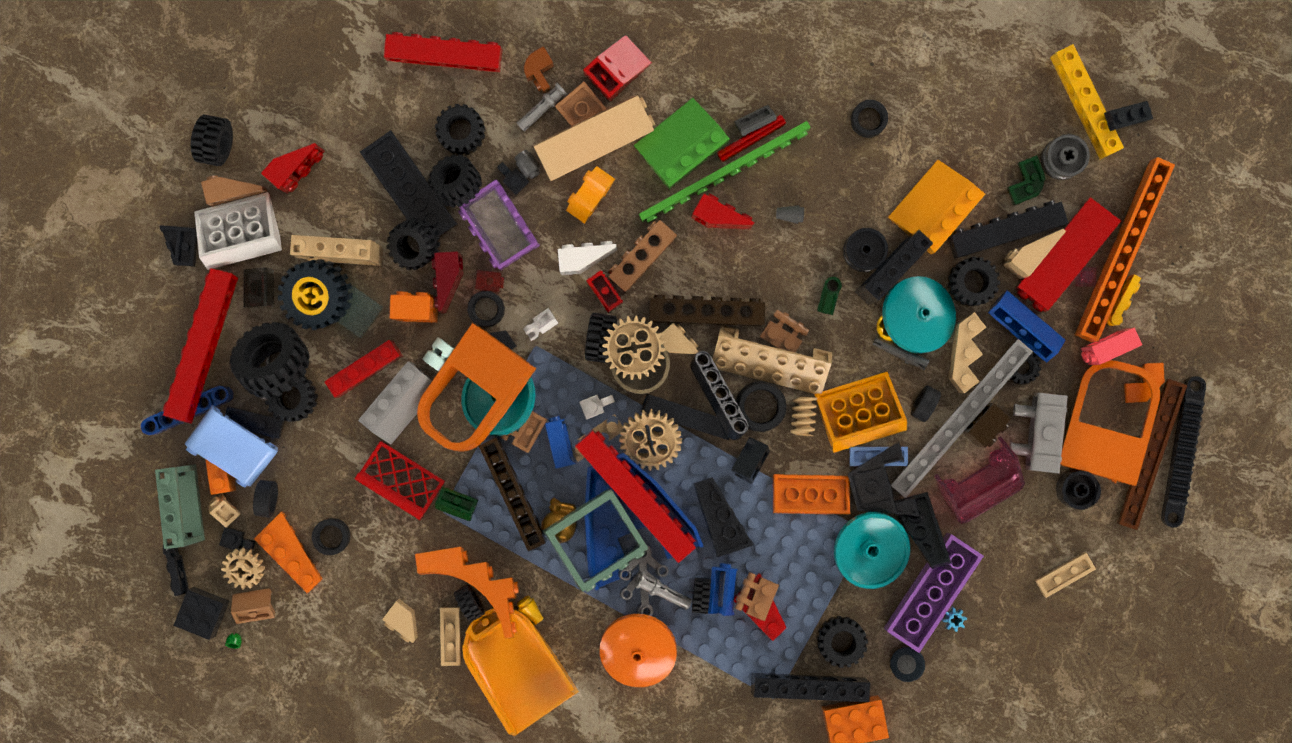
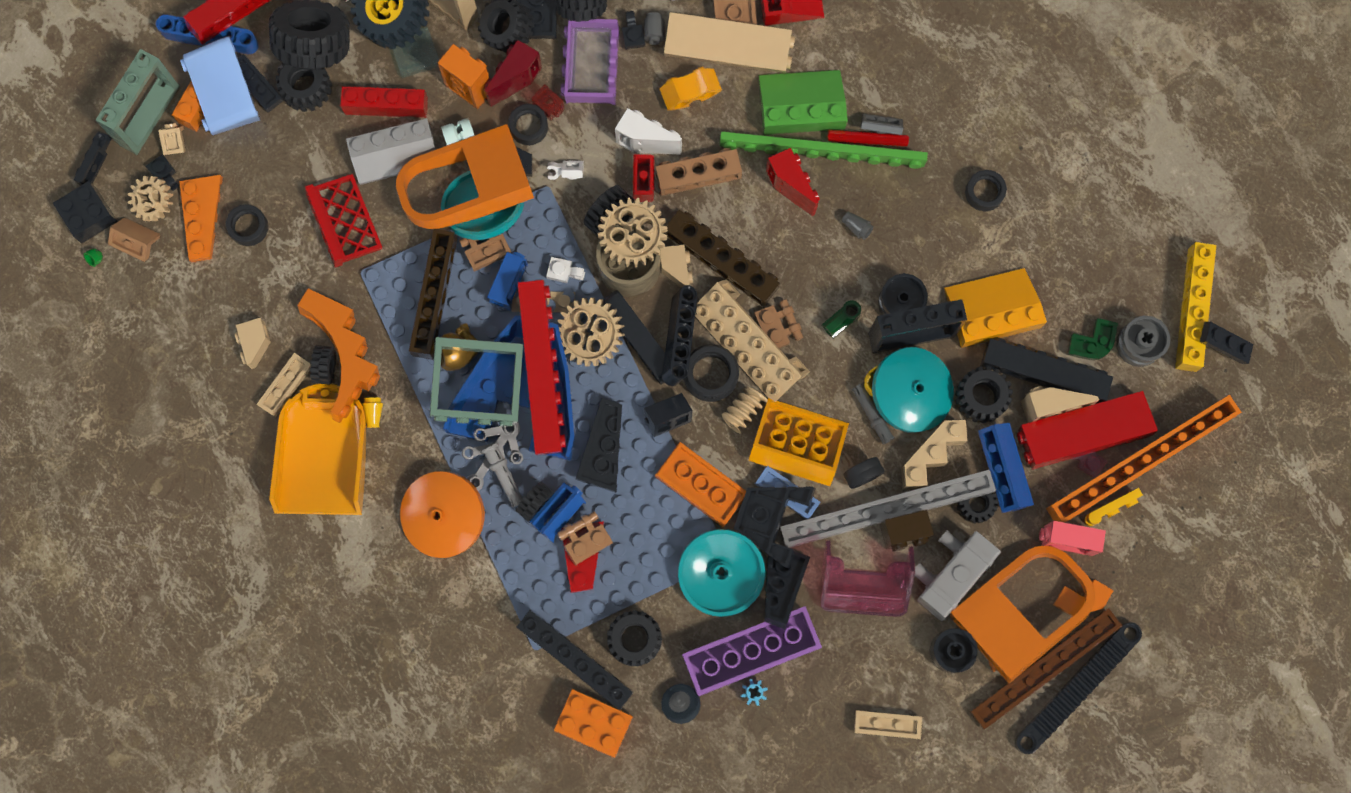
camera: 30 degrees right, 10 degrees down
(265, 498) = (215, 151): black tyre -> none
(456, 503) = (377, 272): dark green slope -> none

